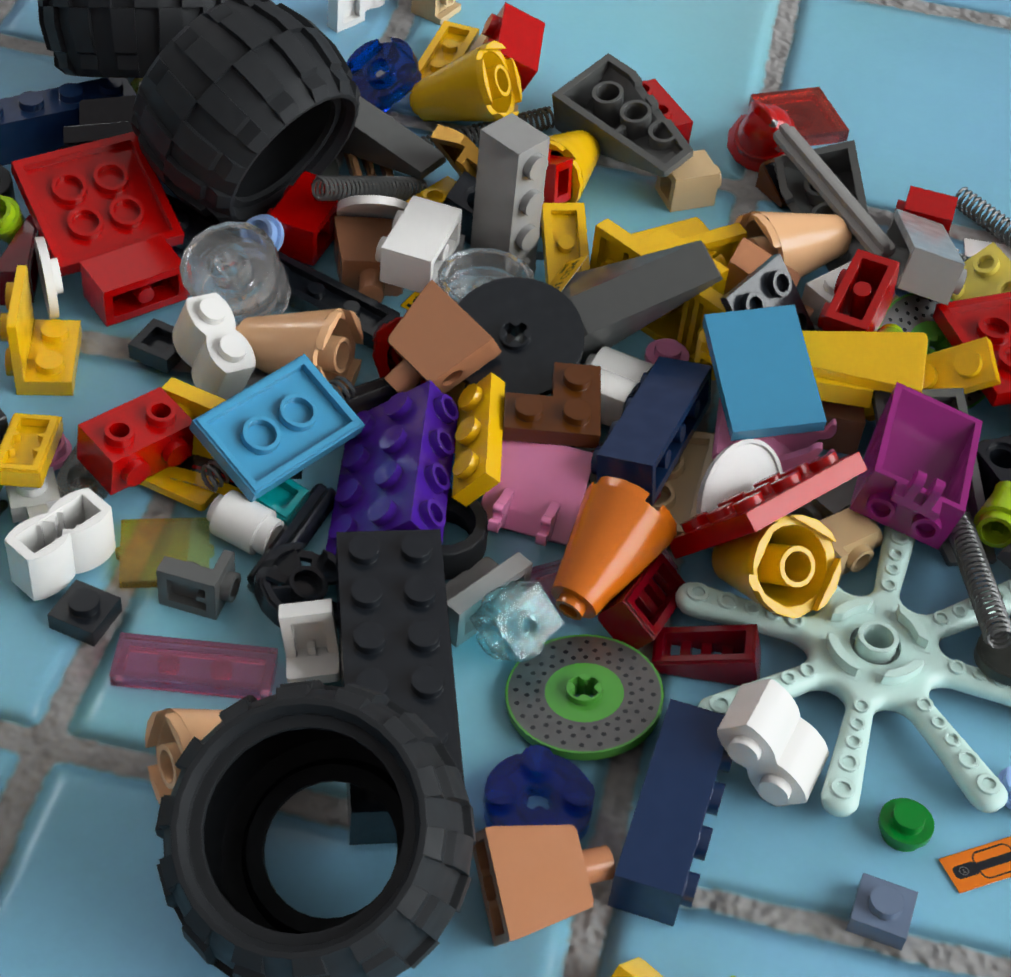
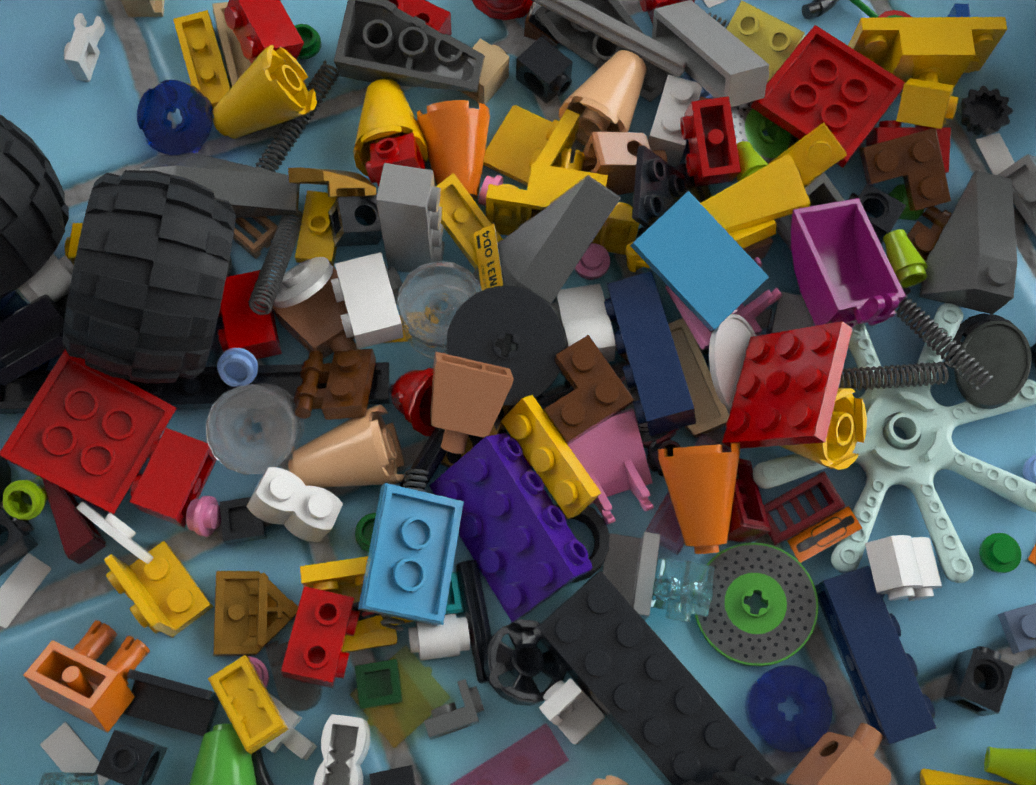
camera: 35 degrees left, 25 degrees up
(89, 397) = (247, 612): none -> pearl gold slope
(129, 320) = (203, 515): none -> bright pink plate
(153, 517) = (378, 684): none -> dark green plate
(331, 286) = (347, 386): none -> reddish brown plate
(541, 88) = (311, 40): none -> green plate
(619, 191) = (456, 141): none -> orange cone
(710, 680) = (824, 534): none -> orange sticker
(746, 195) = (544, 70): none -> black brick
(765, 926) = (966, 693): none -> black brick
(907, 591) = (852, 380): none -> dark grey piece

